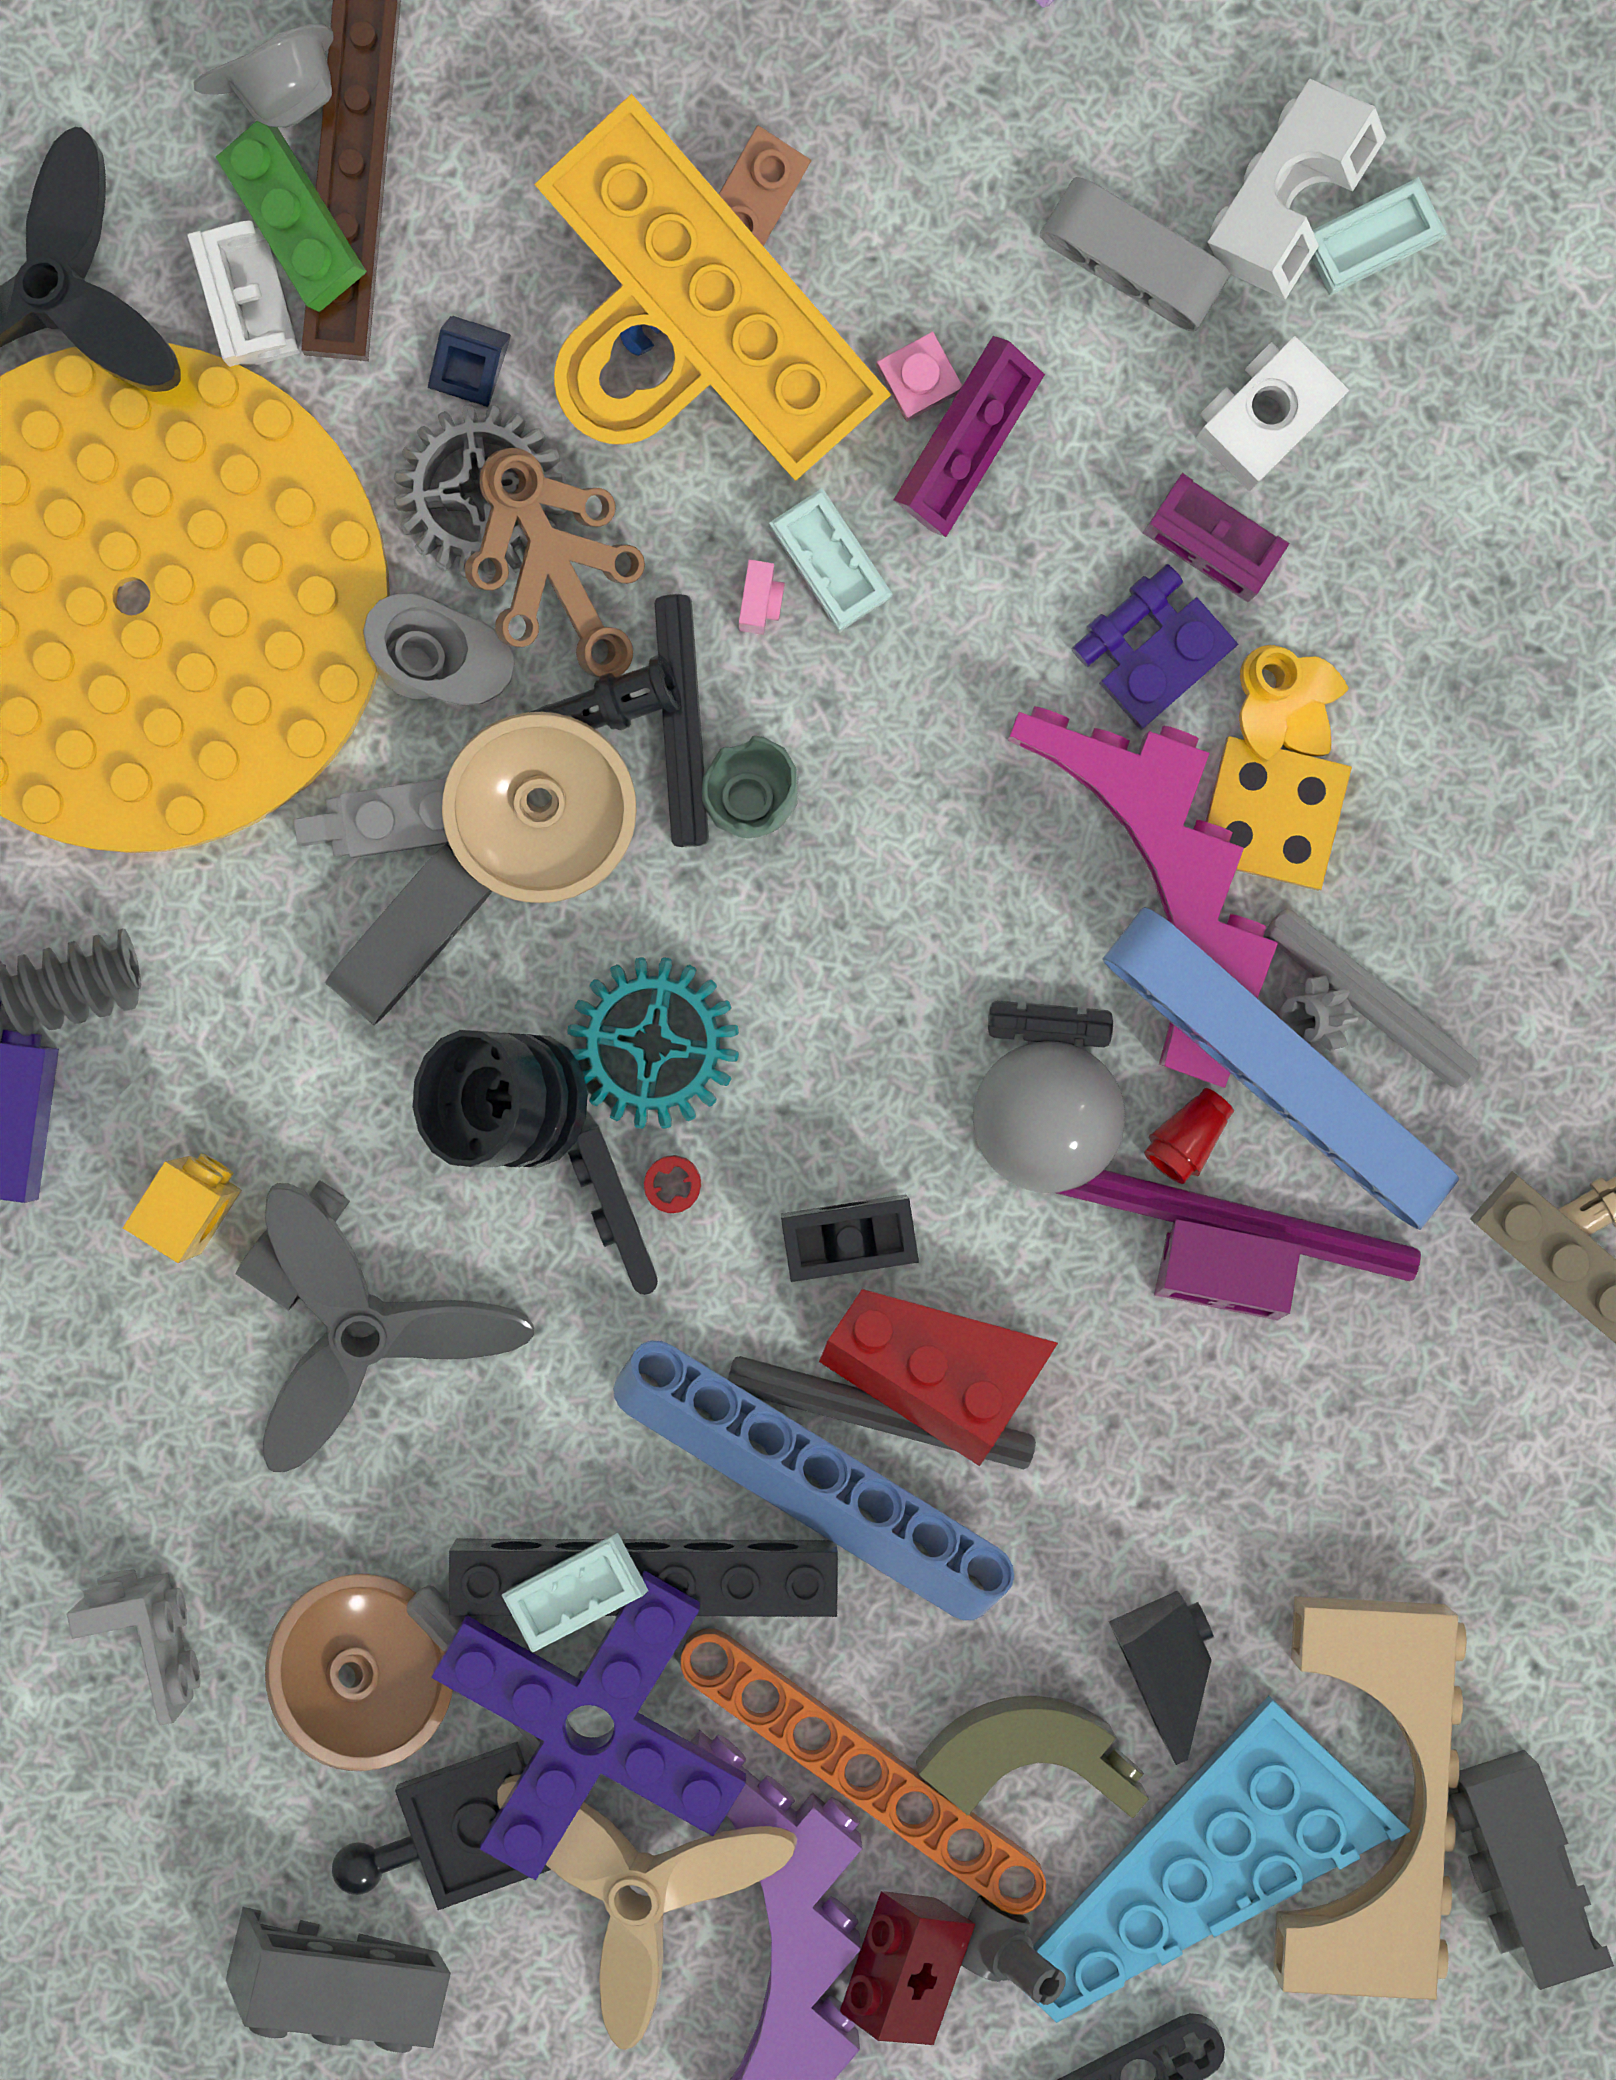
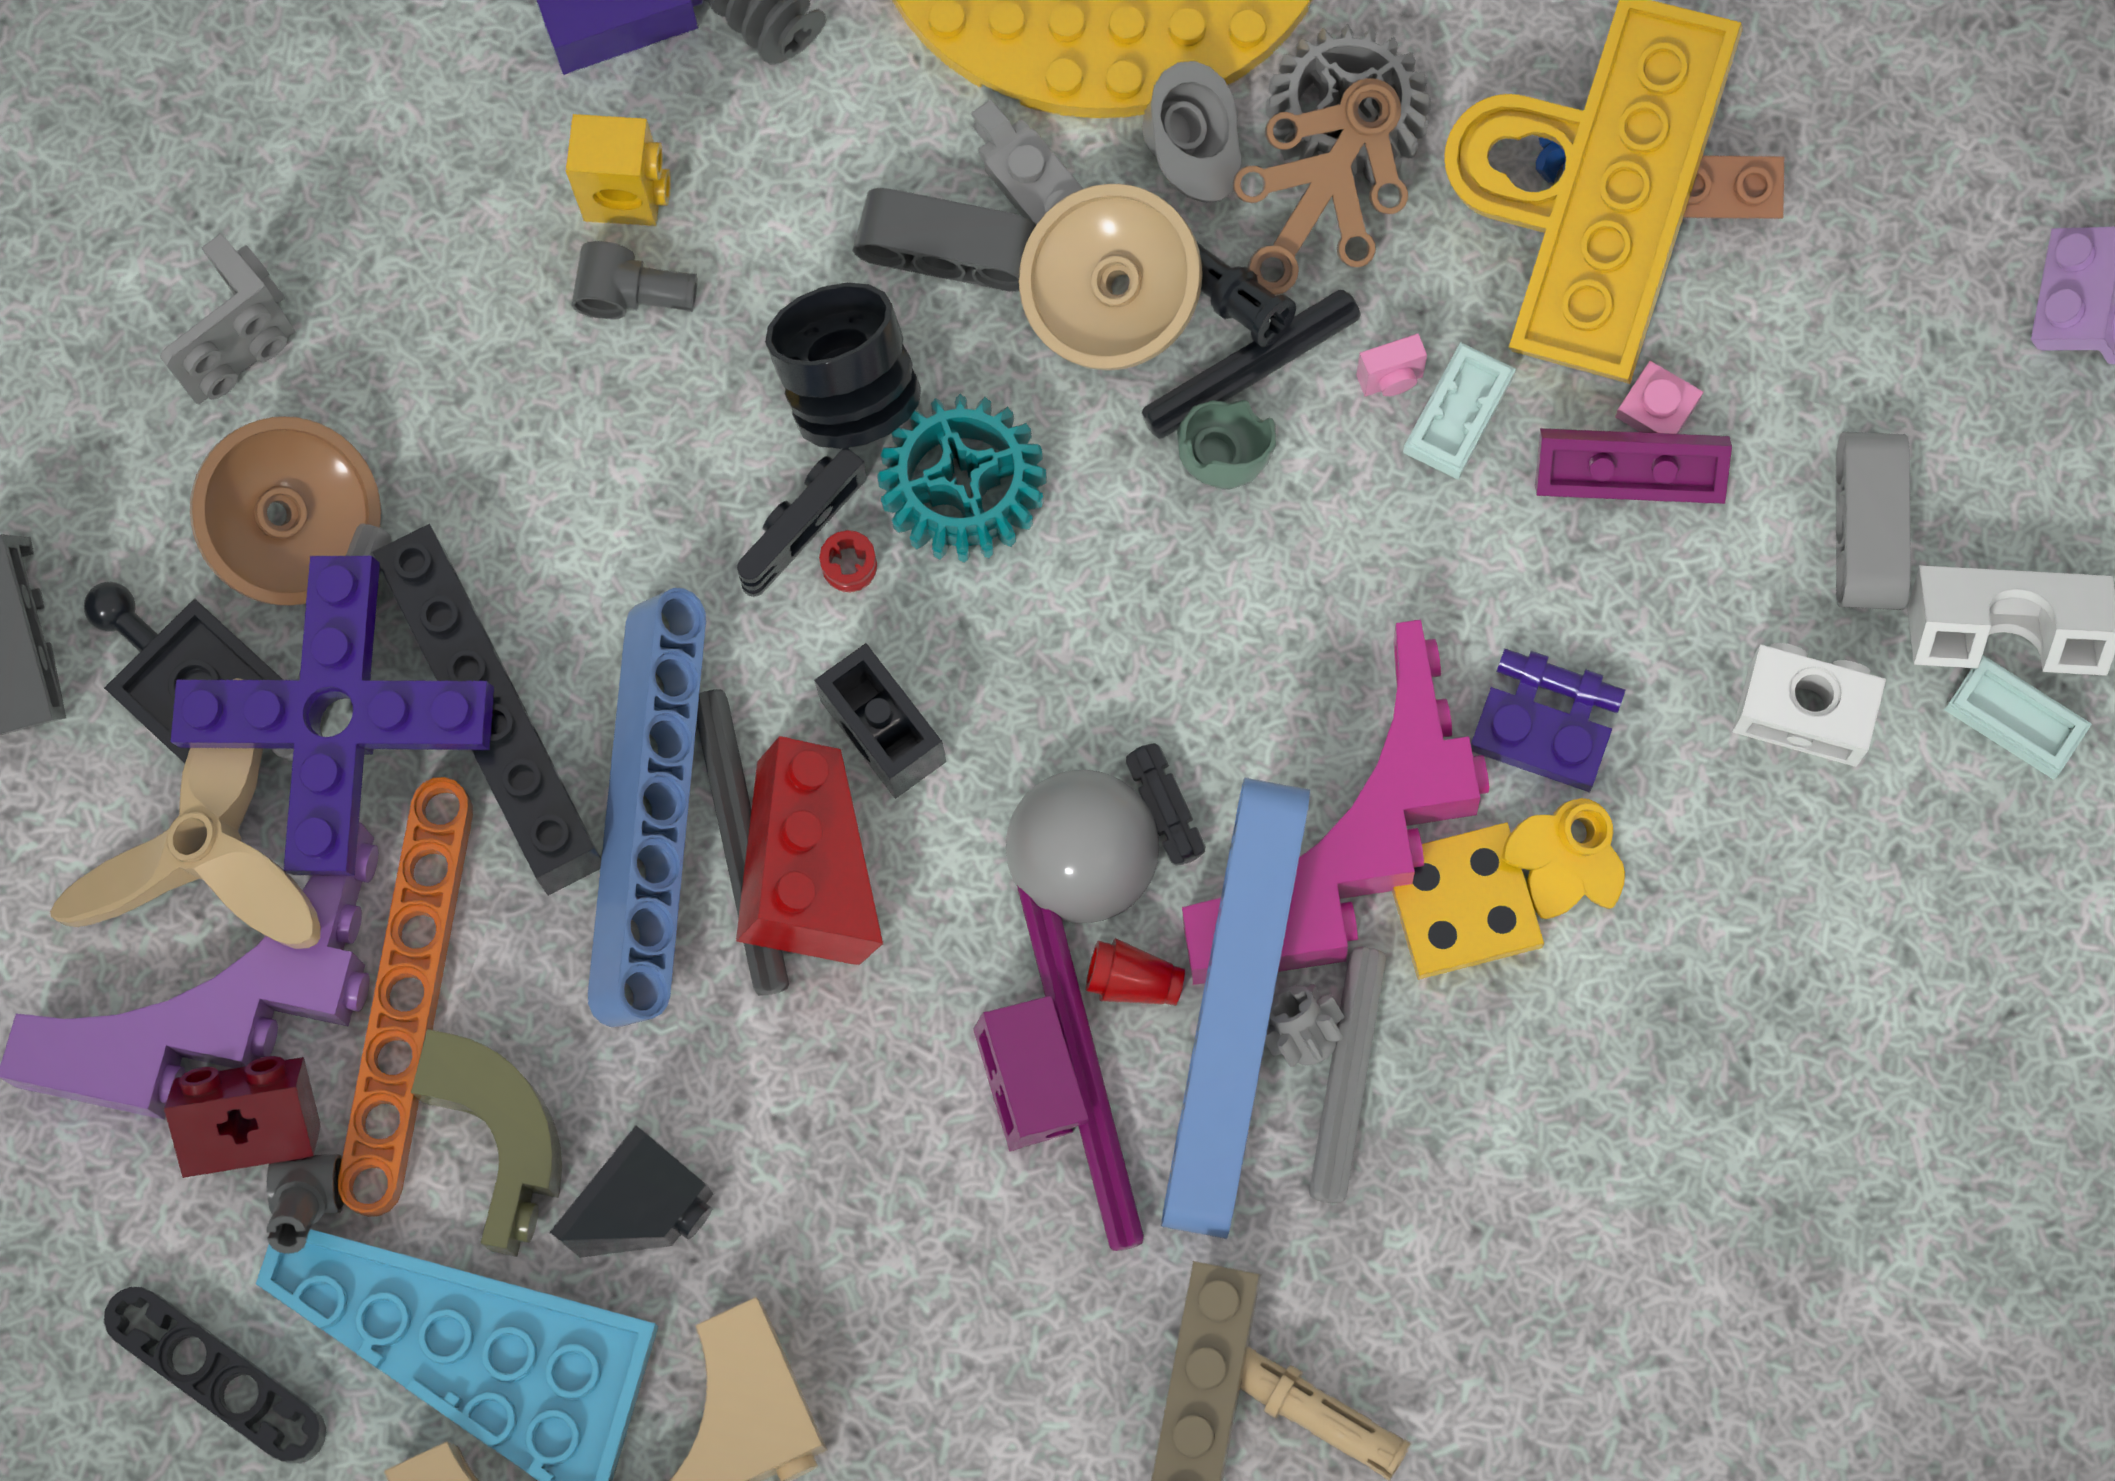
camera: 65 degrees right, 15 degrees down
(334, 1289) = (609, 326): dark grey piece -> none
(468, 360) = (1452, 47): dark blue slope -> none
(575, 1592) = (445, 632): light aqua plate -> none
(1215, 538) = (1673, 716): magenta hinge -> none

